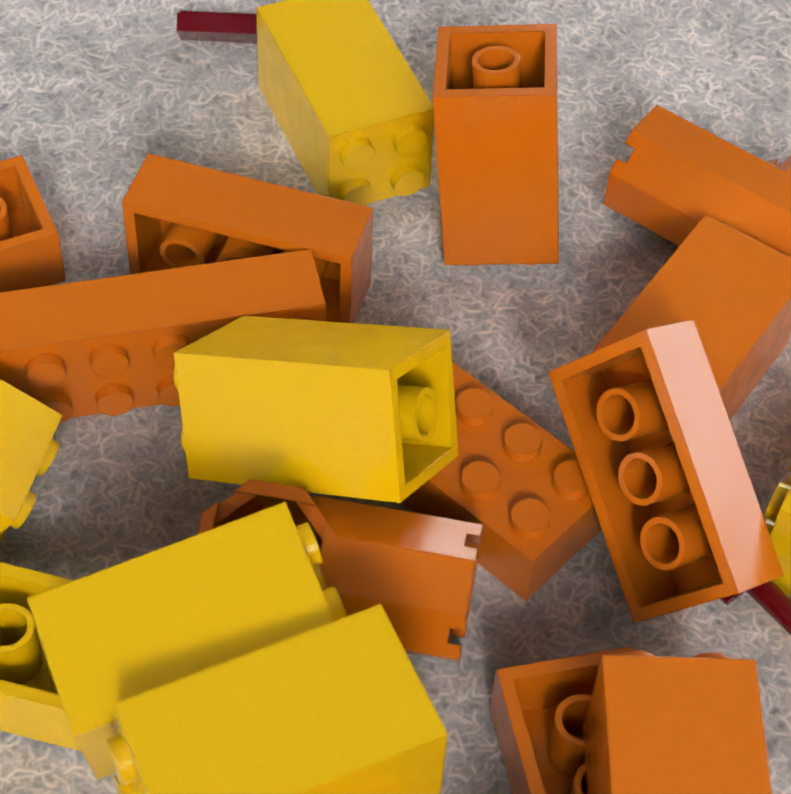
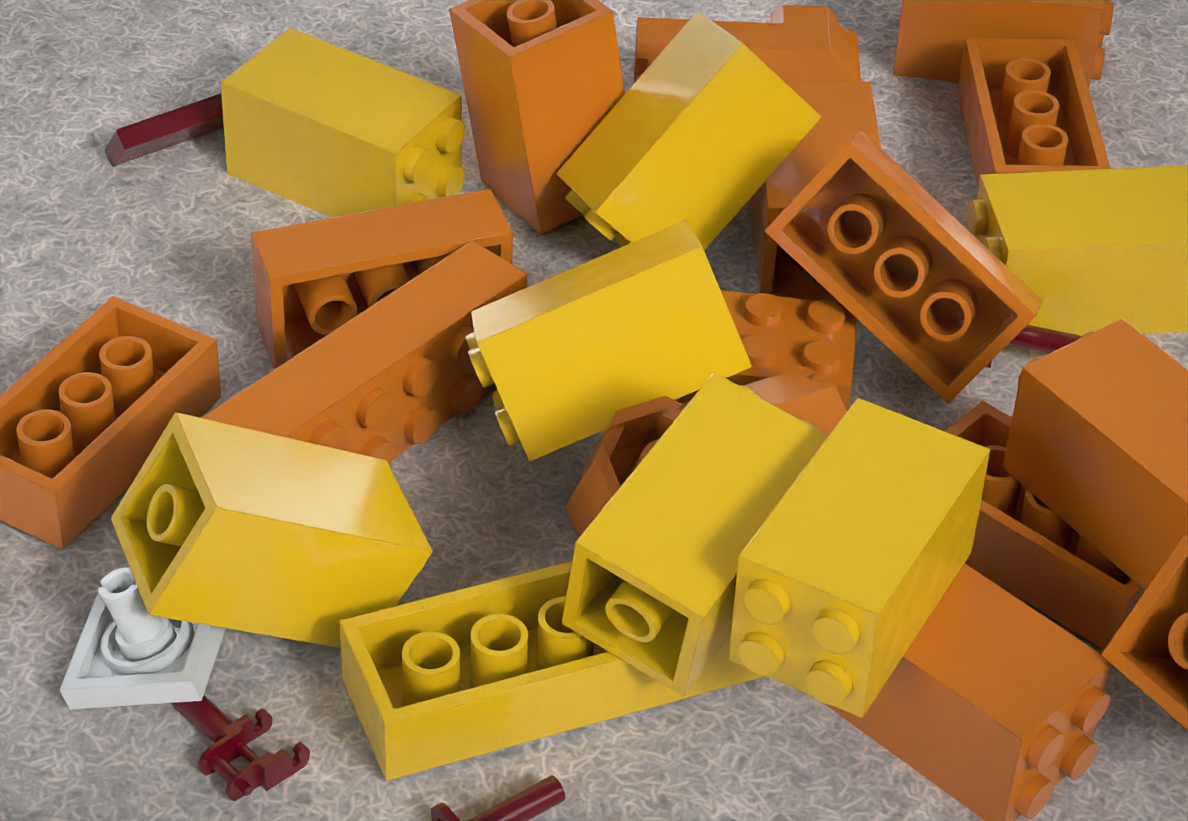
camera: 35 degrees left, 10 degrees down
(575, 251) = (687, 140): none -> yellow brick

